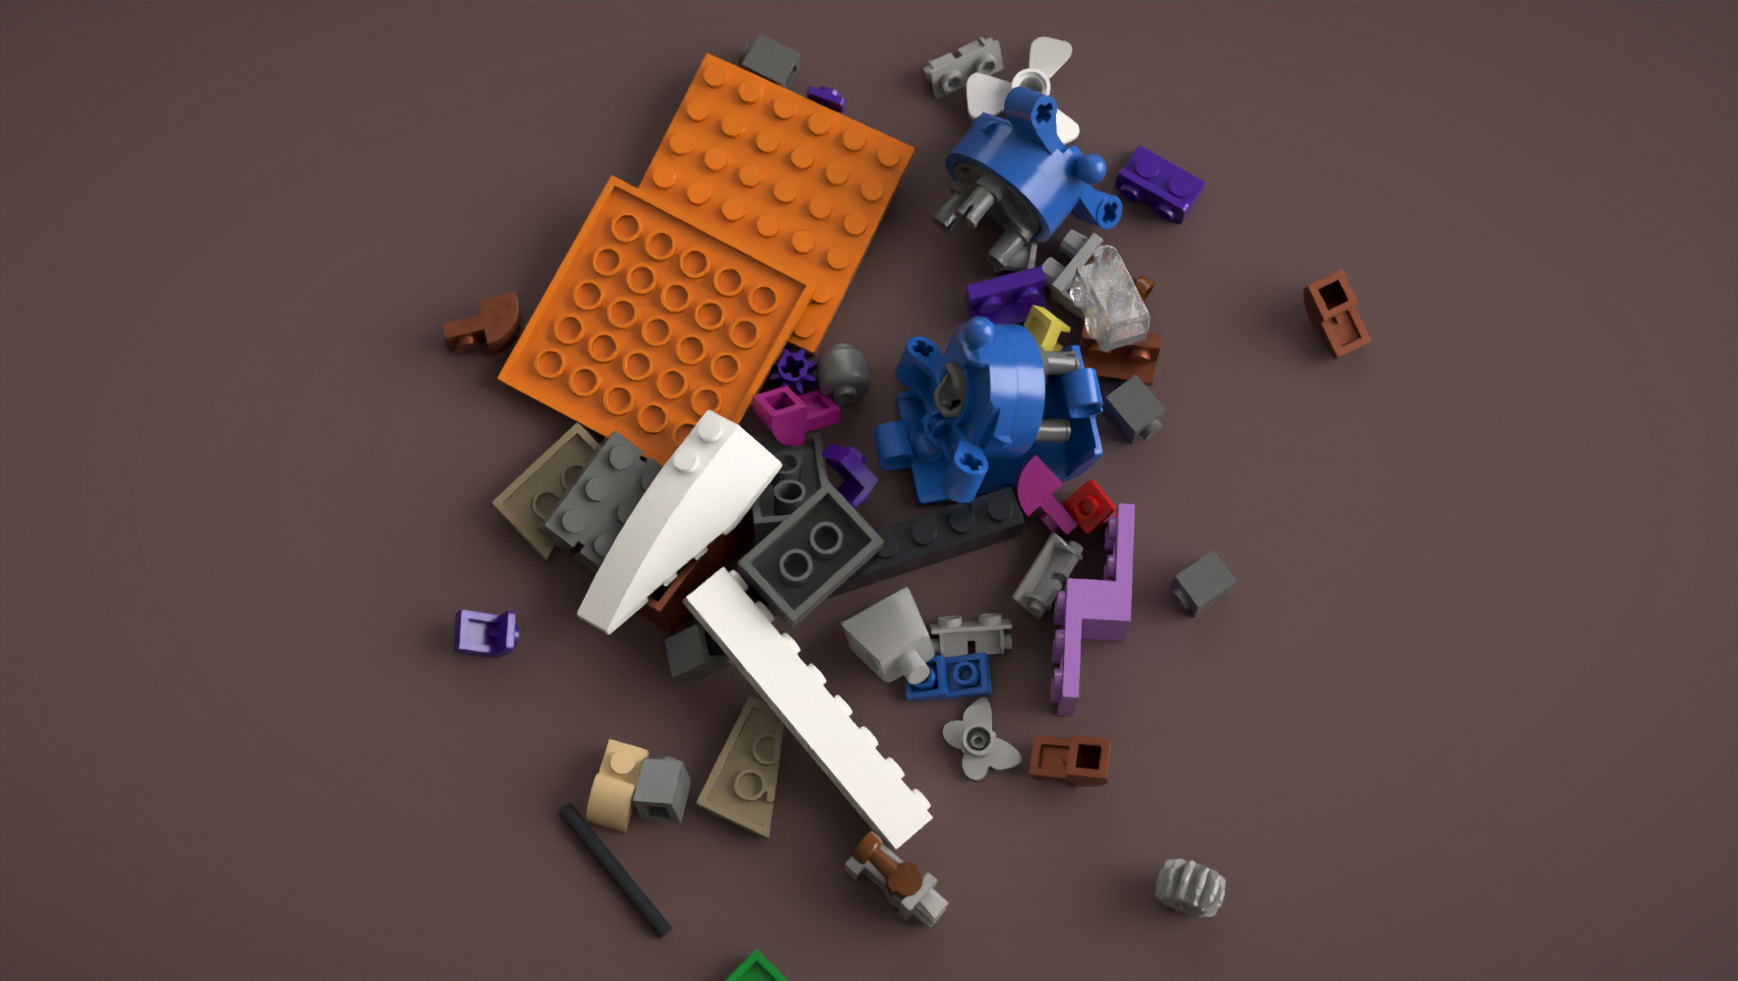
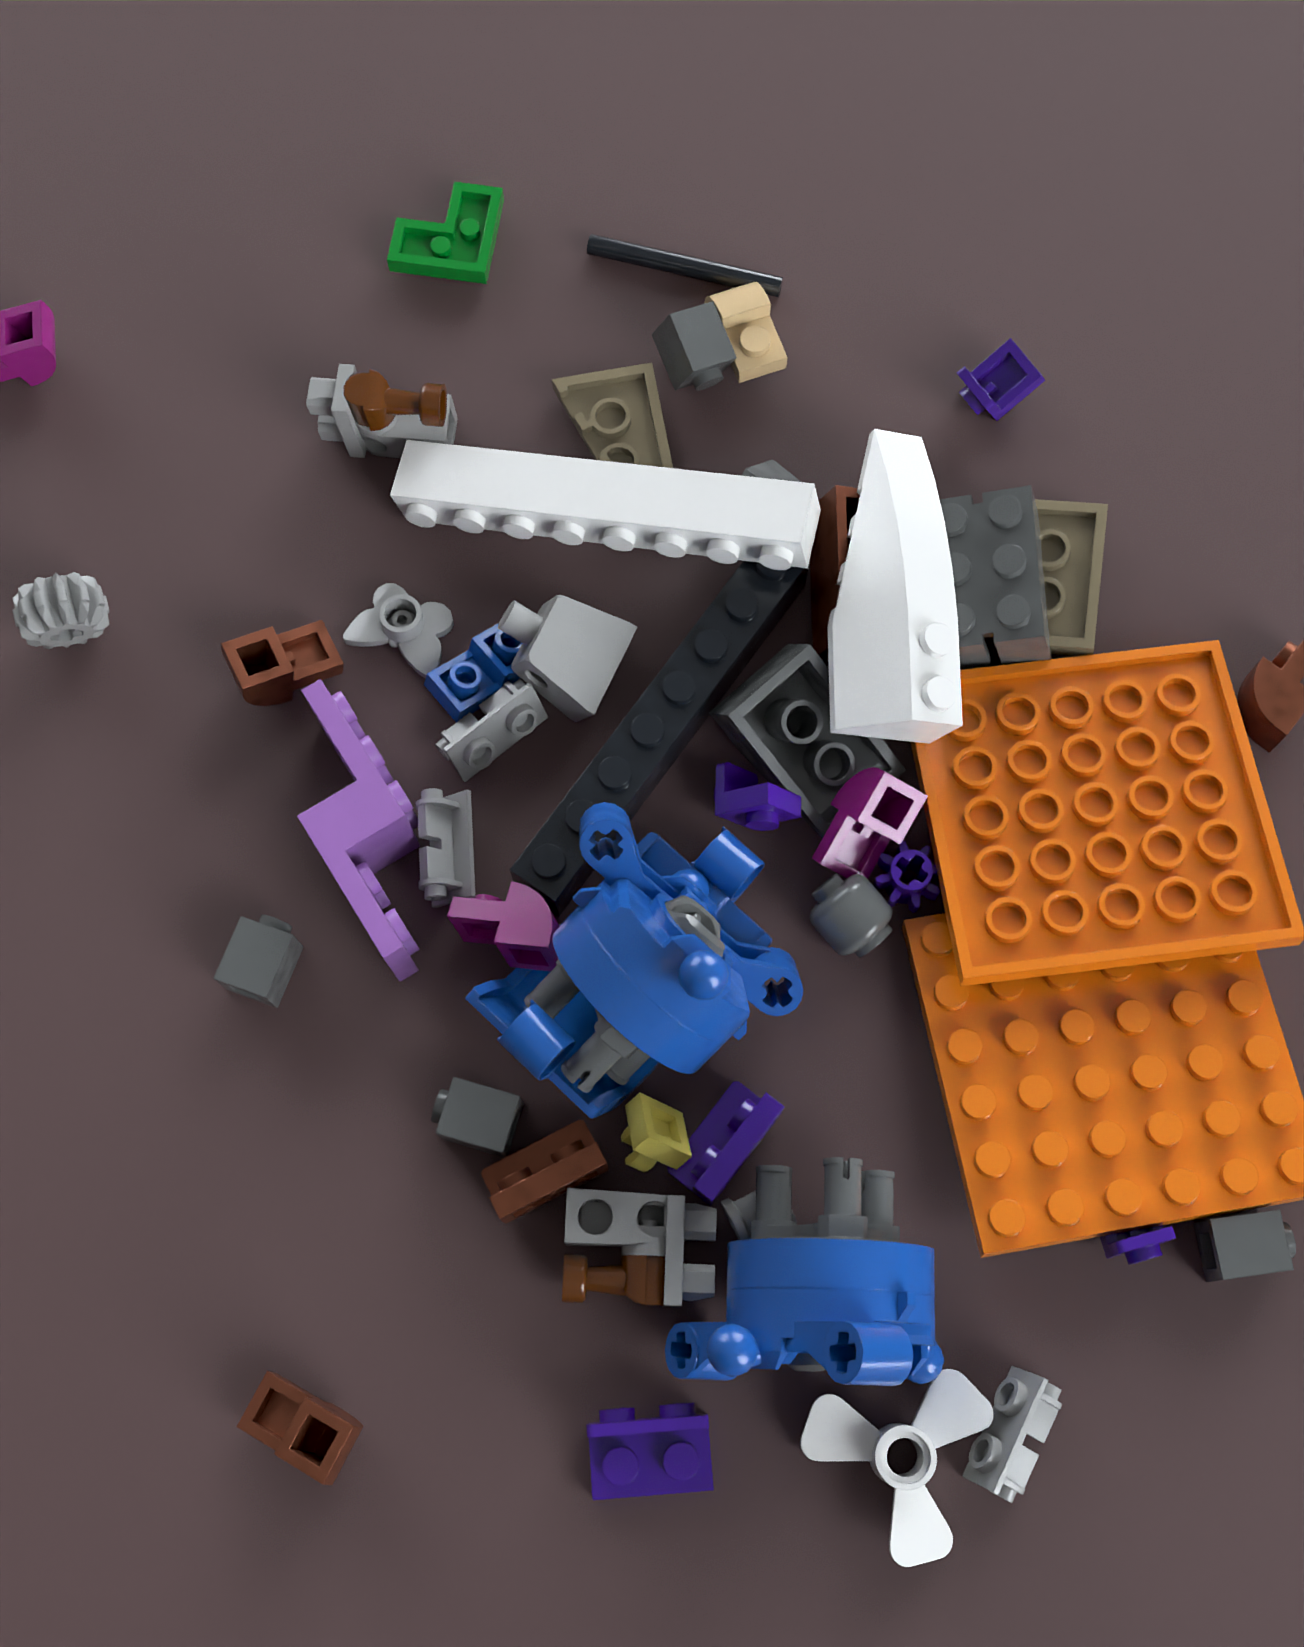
camera: 150 degrees right, 0 degrees up
(810, 555) = (716, 631): dark grey brick -> none
(1090, 507) = (447, 952): red bracket -> none
(1110, 301) = (588, 1203): clear brick -> none

